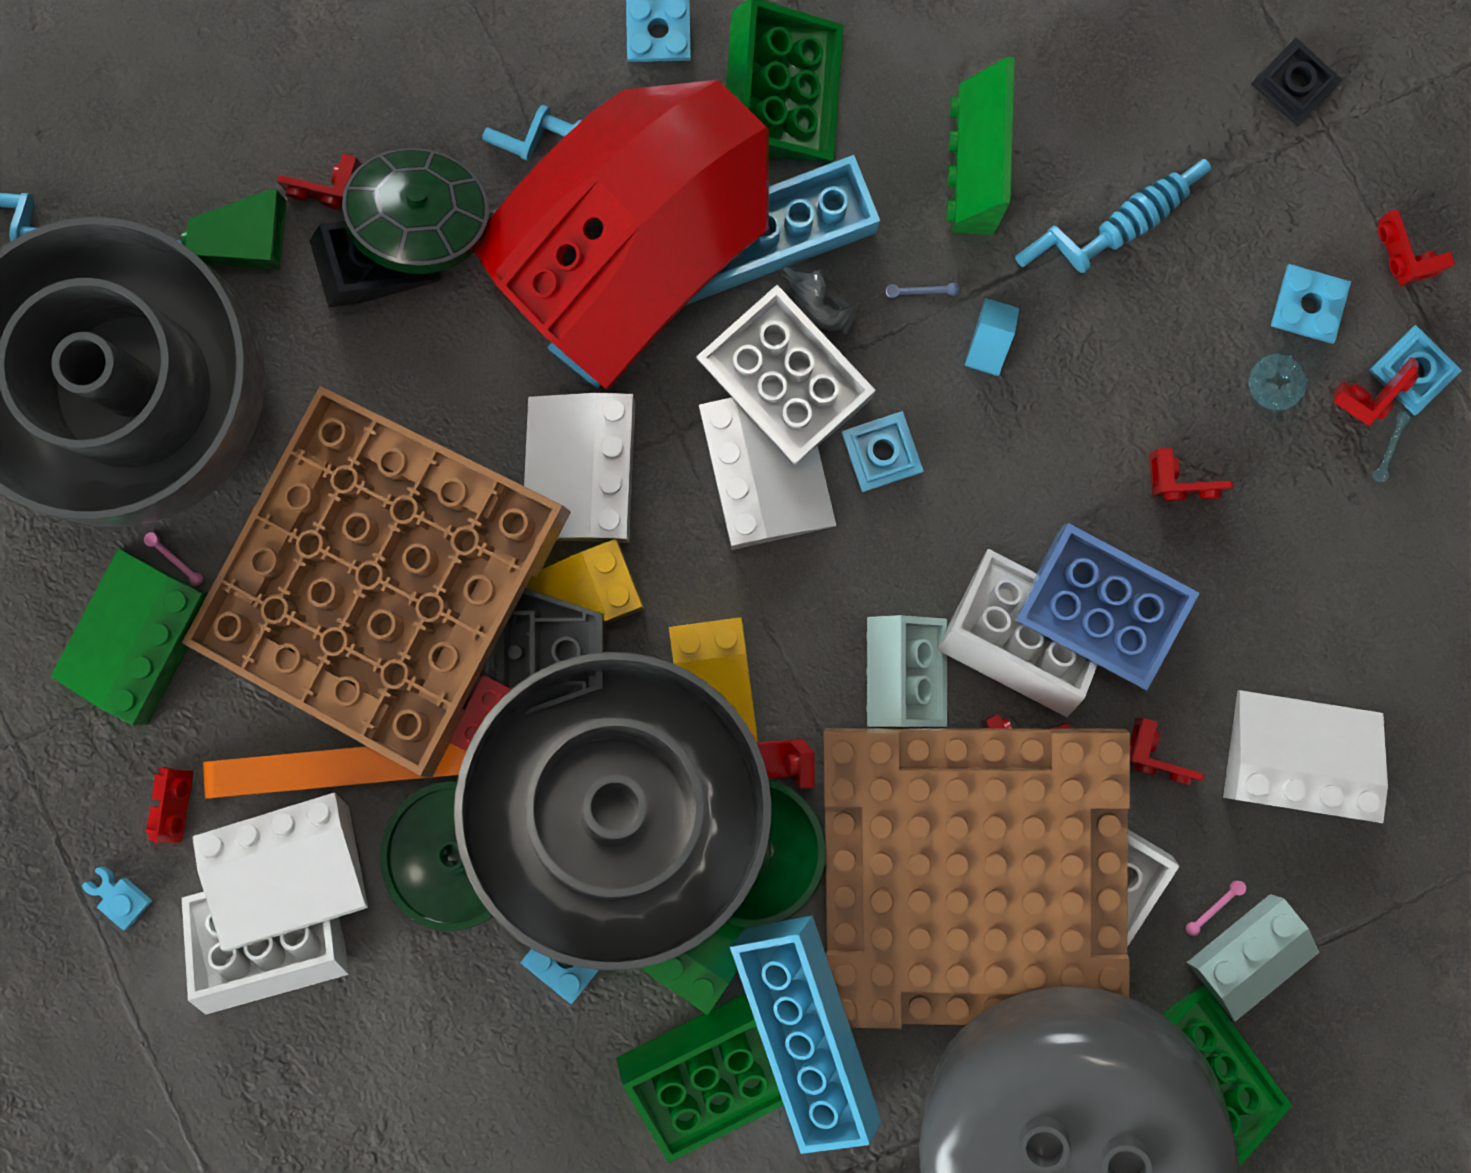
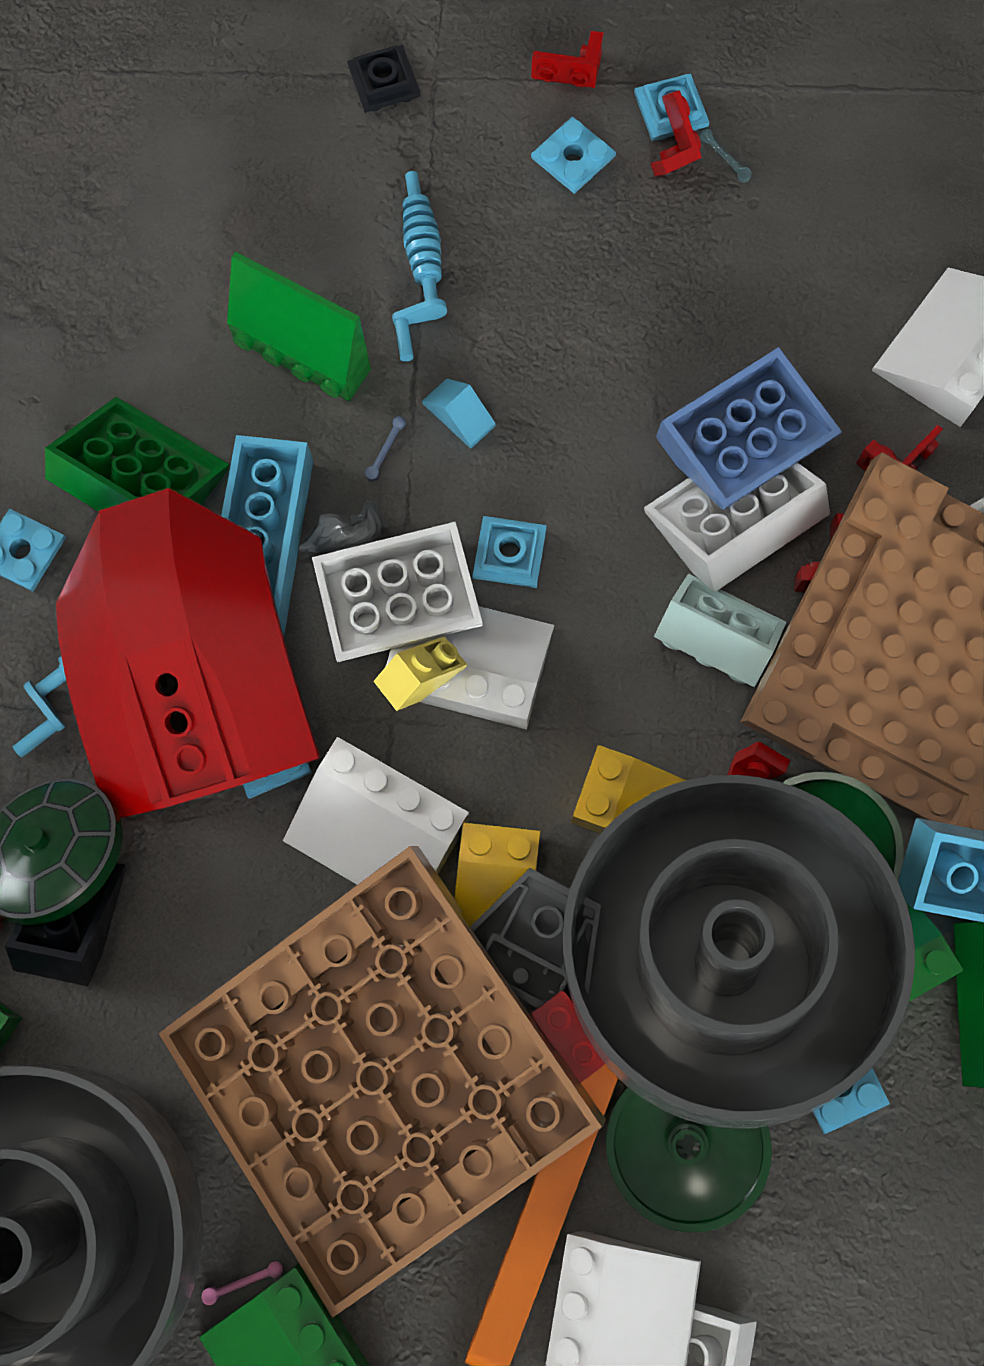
camera: 60 degrees left, 10 degrees down
(719, 433) = (419, 672): none -> light yellow slope
(1165, 470) = (659, 335): red bracket -> none
(1267, 393) = (632, 221): clear light blue gear -> none

